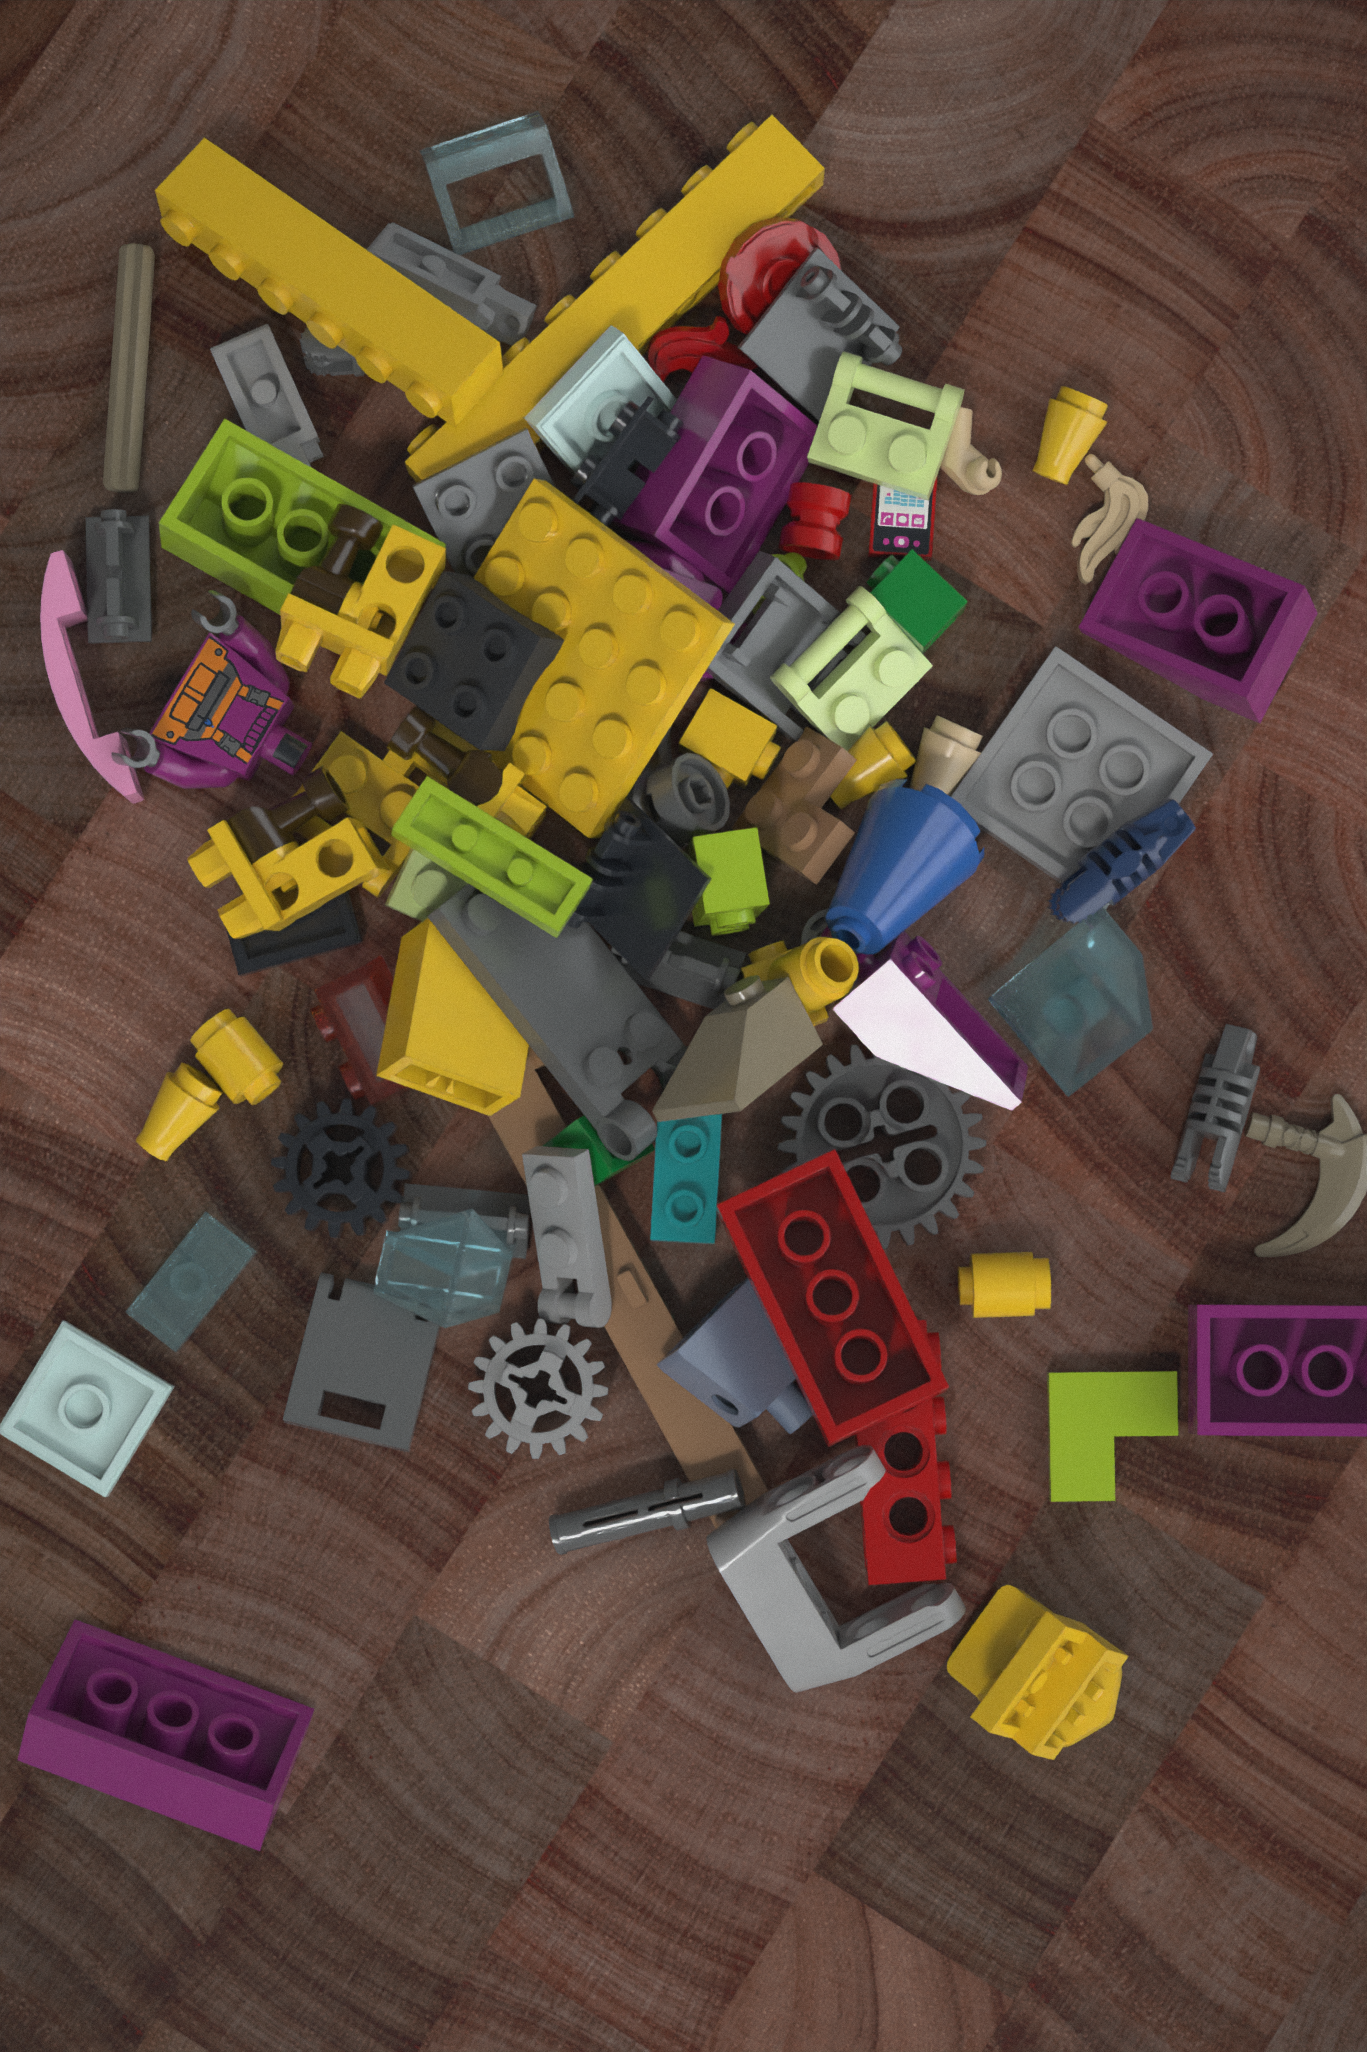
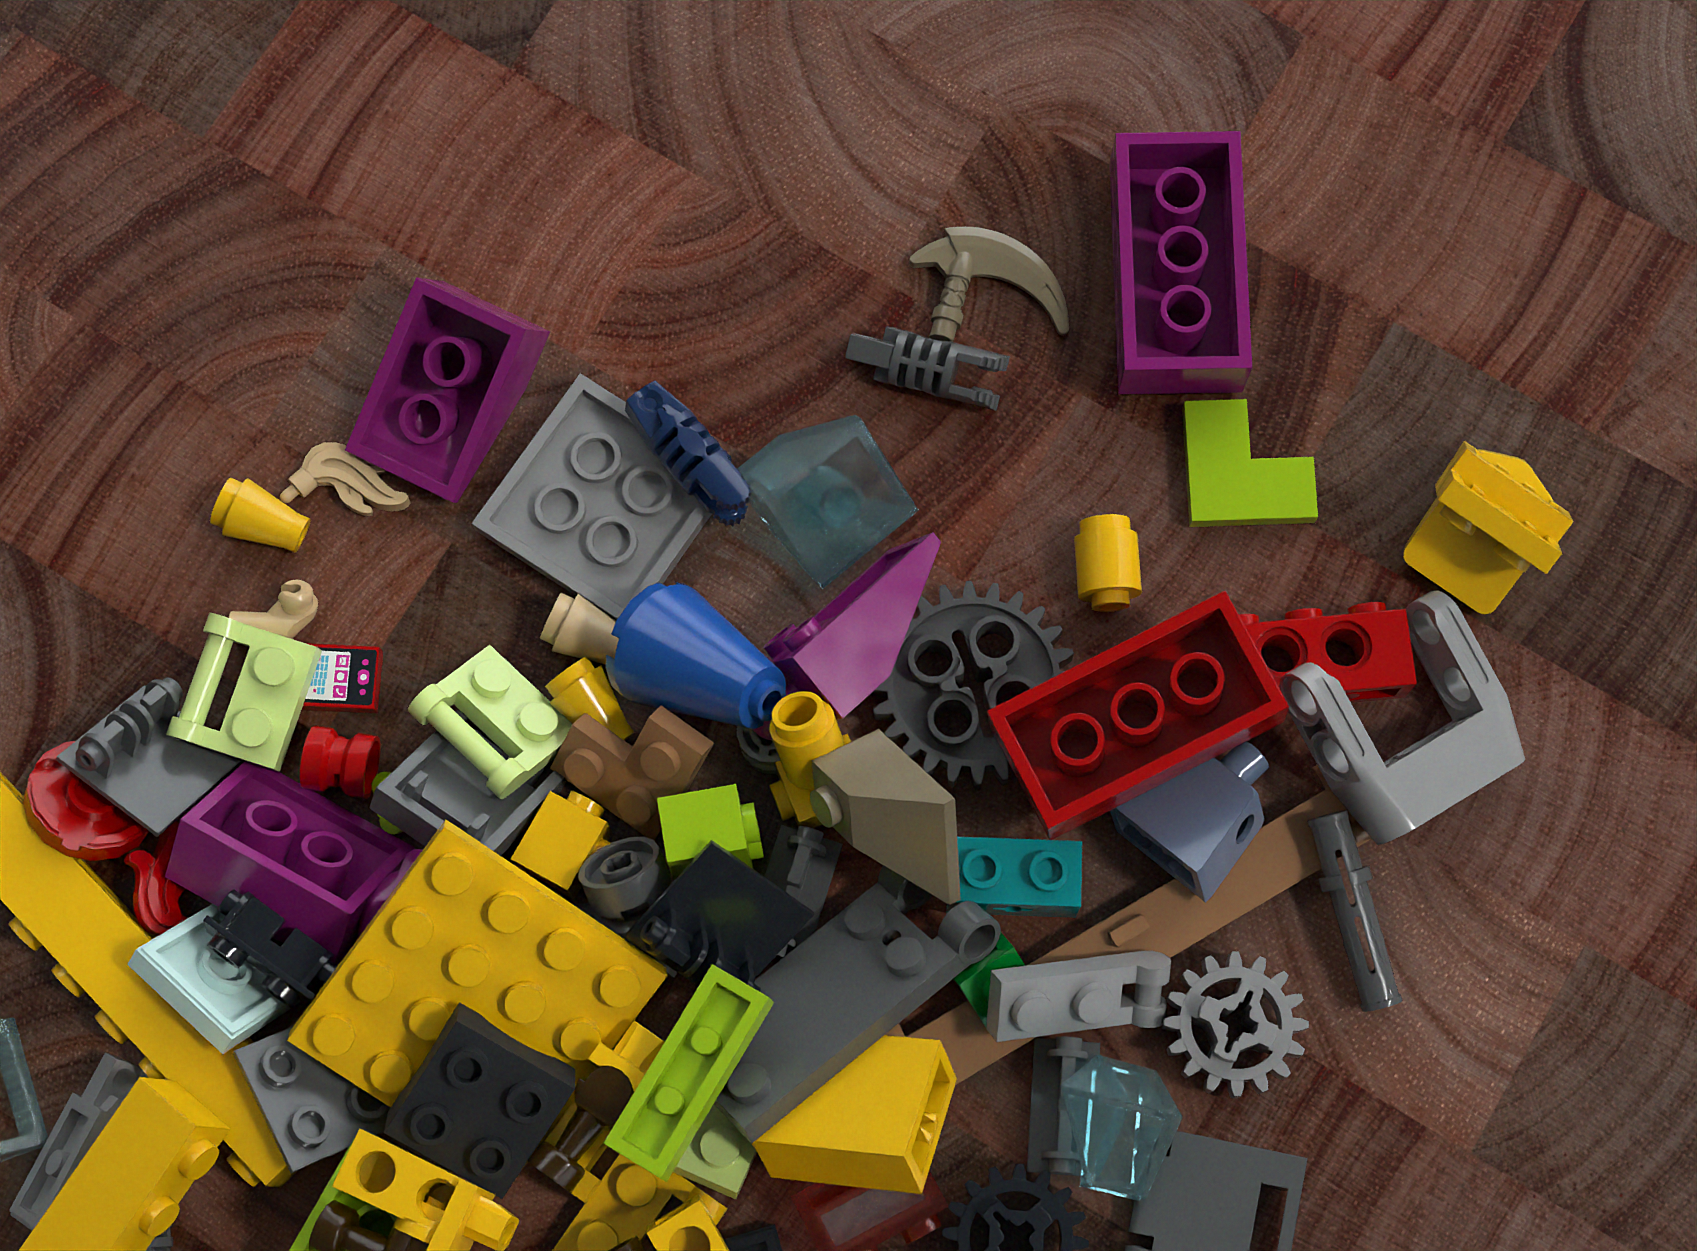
camera: 90 degrees left, 10 degrees down
(916, 598) = (420, 656): green brick -> none

